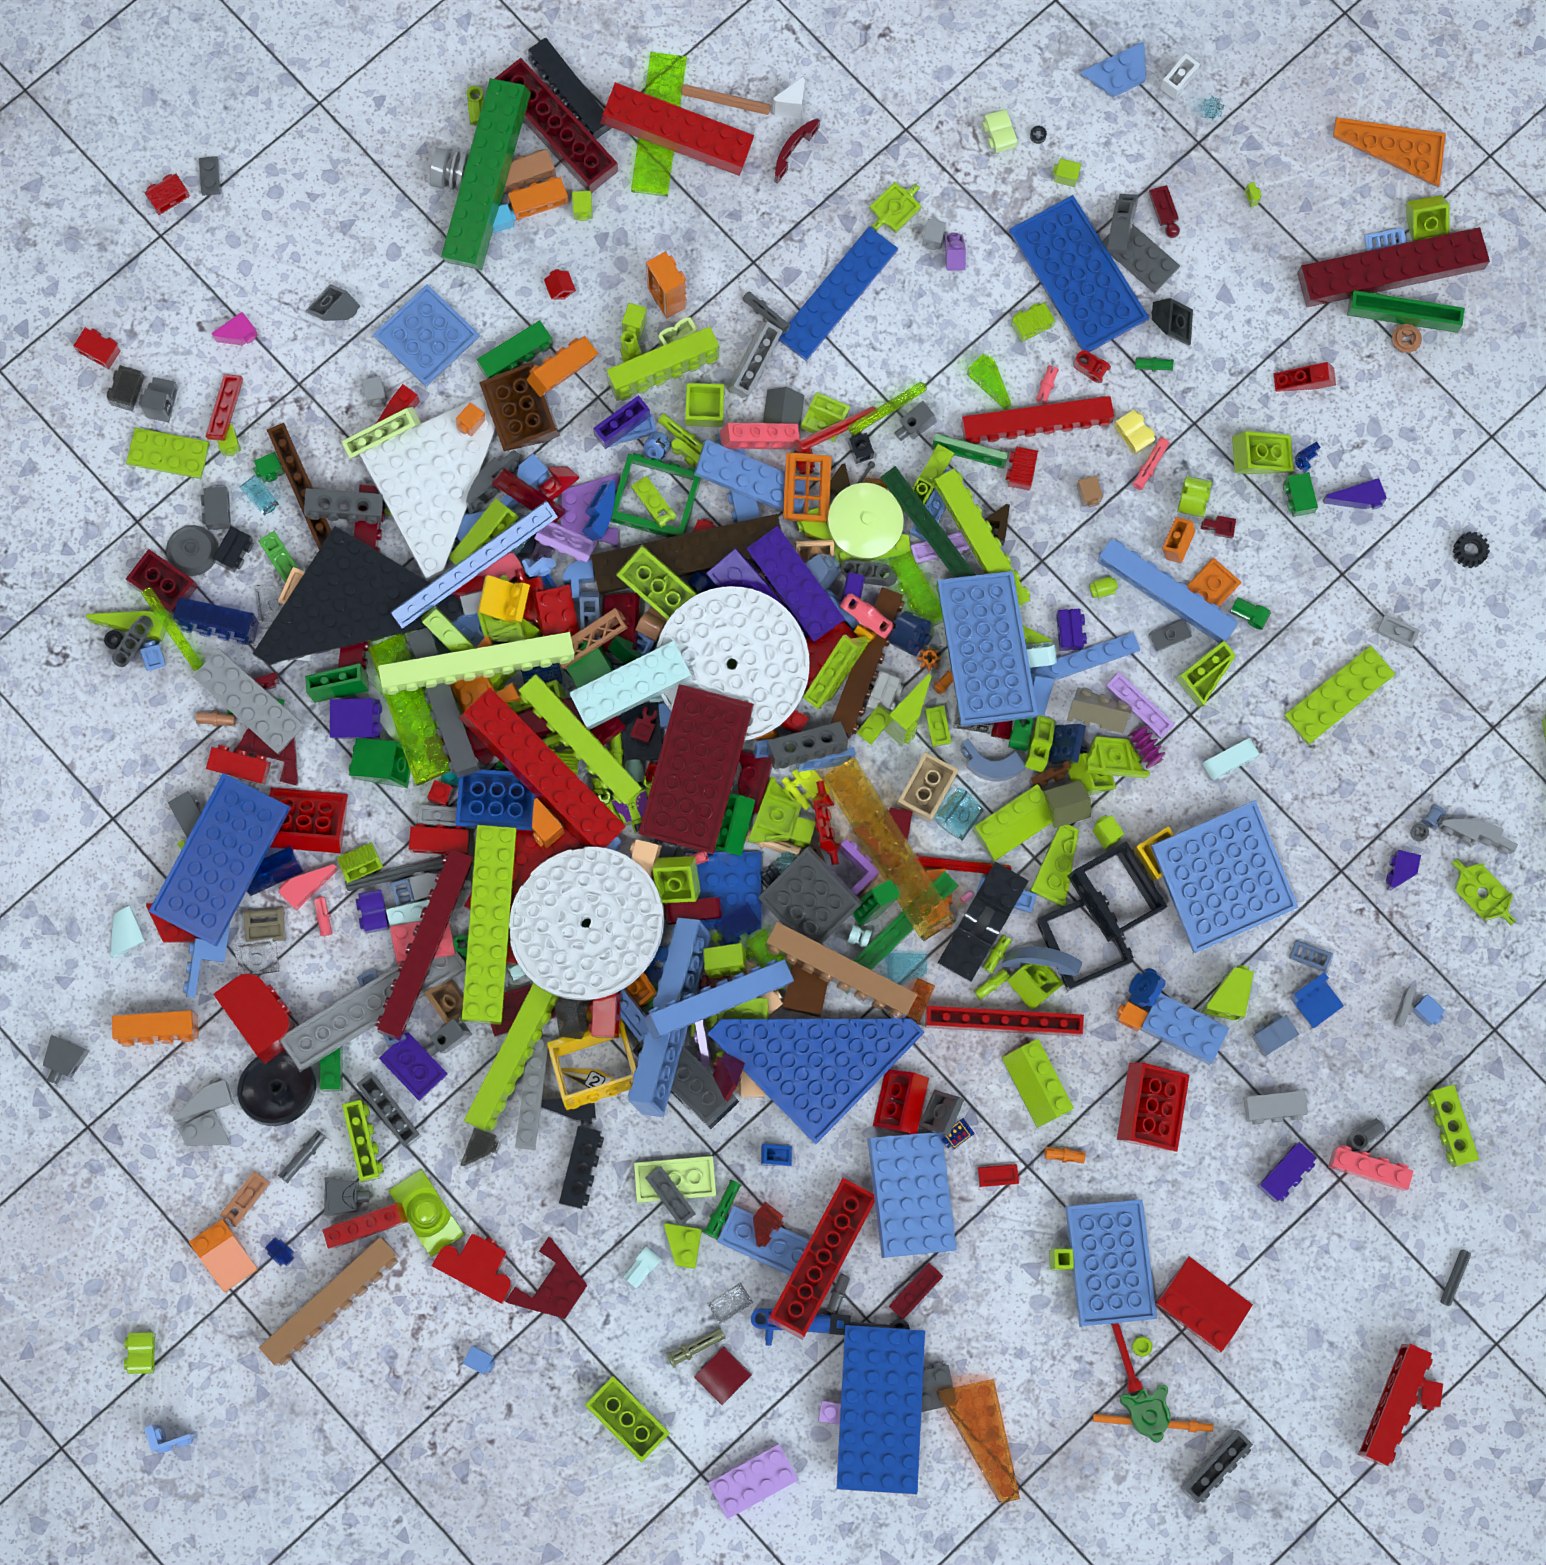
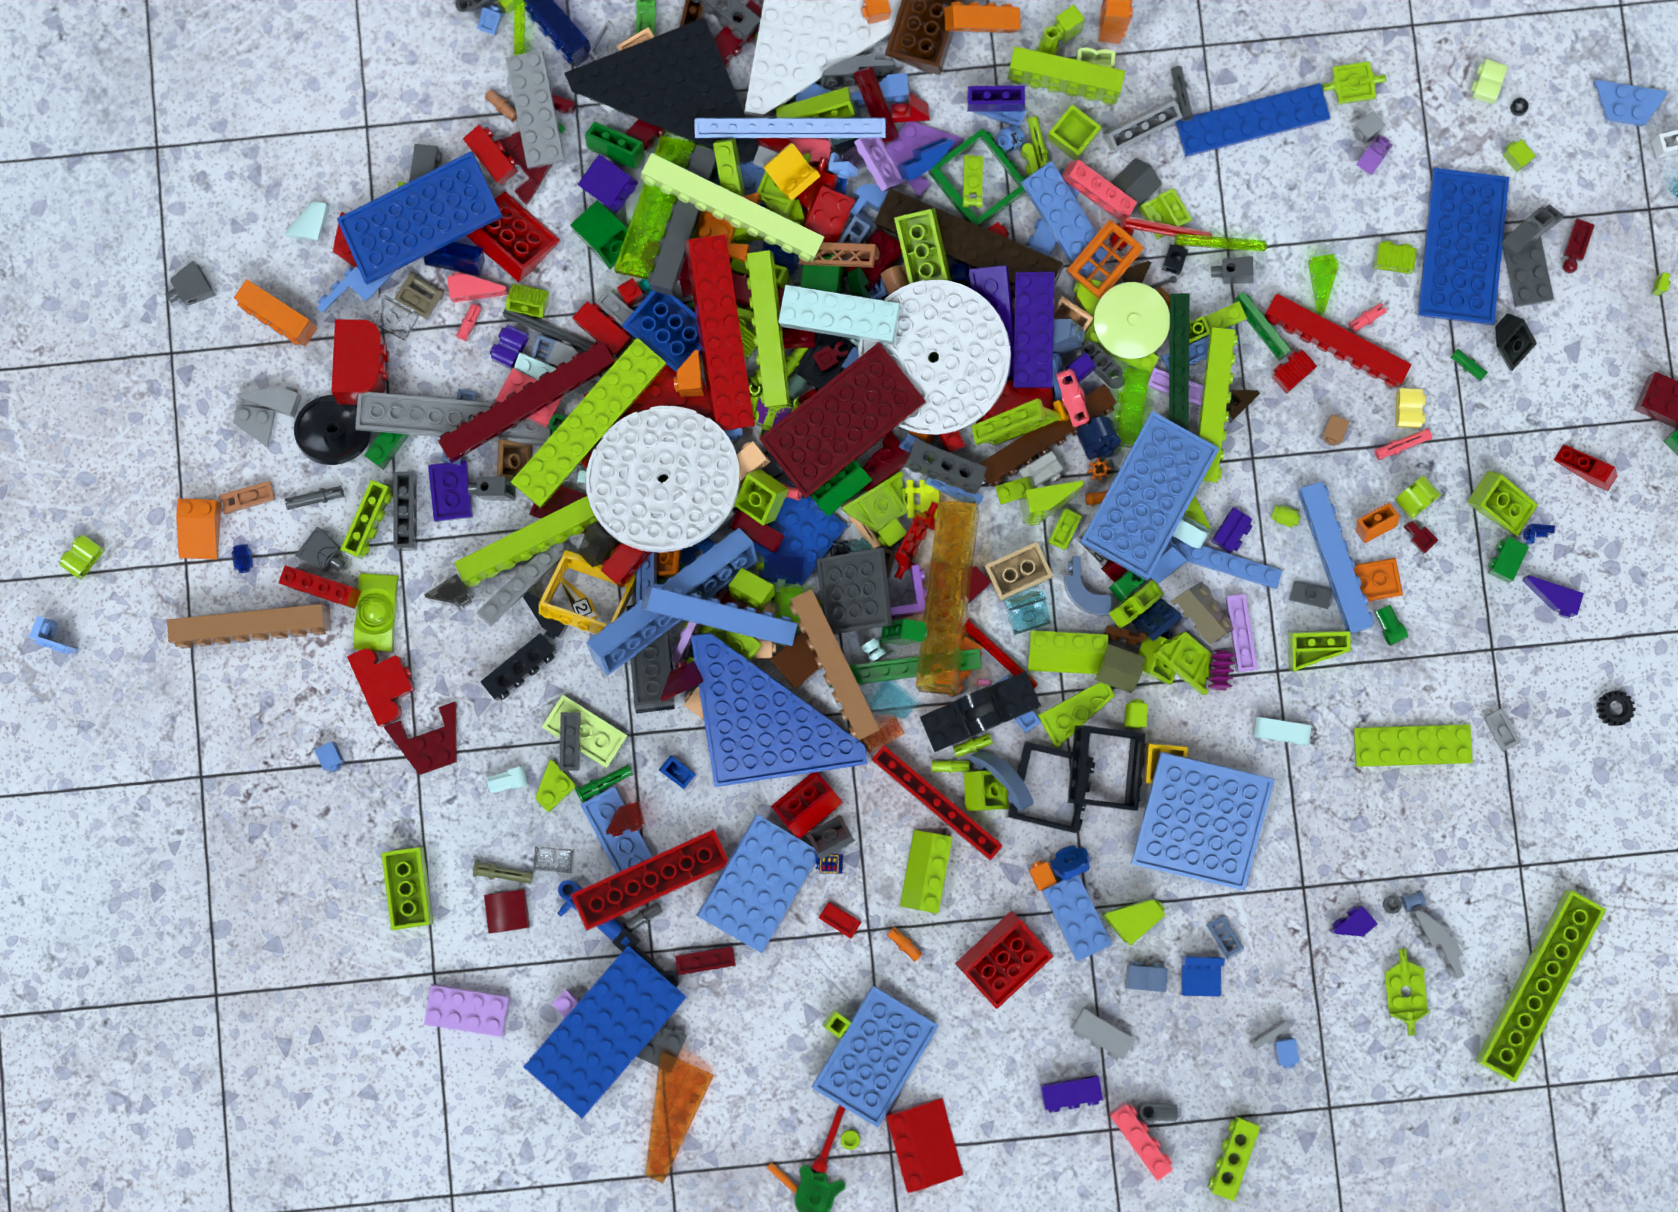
camera: 45 degrees right, 5 degrees up
(1092, 366) = (1415, 330): red piece -> none

